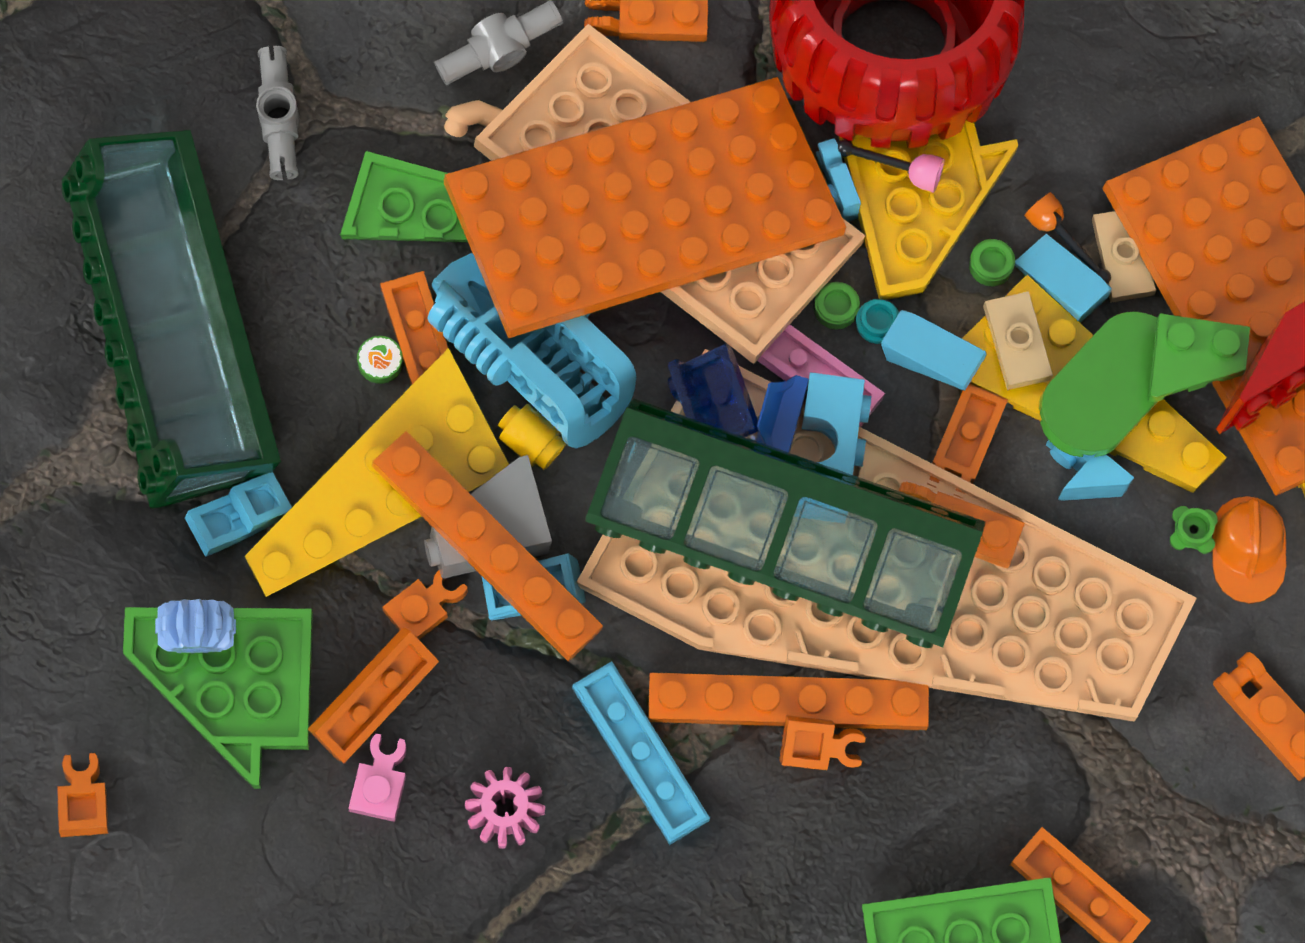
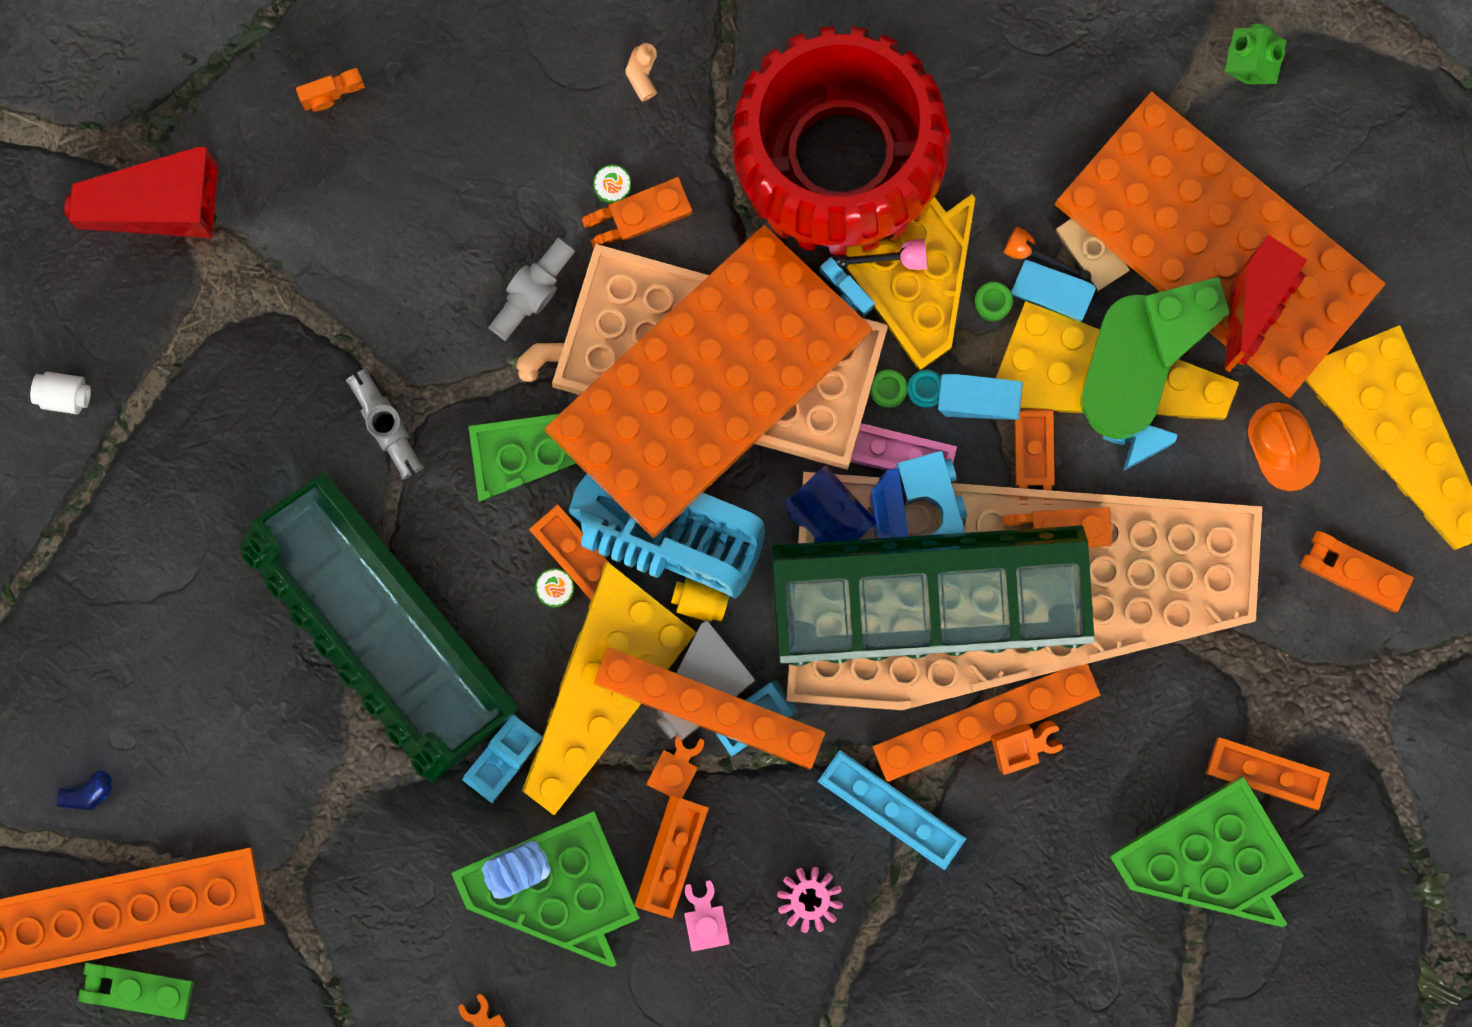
camera: 20 degrees left, 10 degrees up
(1017, 340) = (1042, 361): tan plate -> none
(1205, 523) = (1243, 441): bright green plate -> none

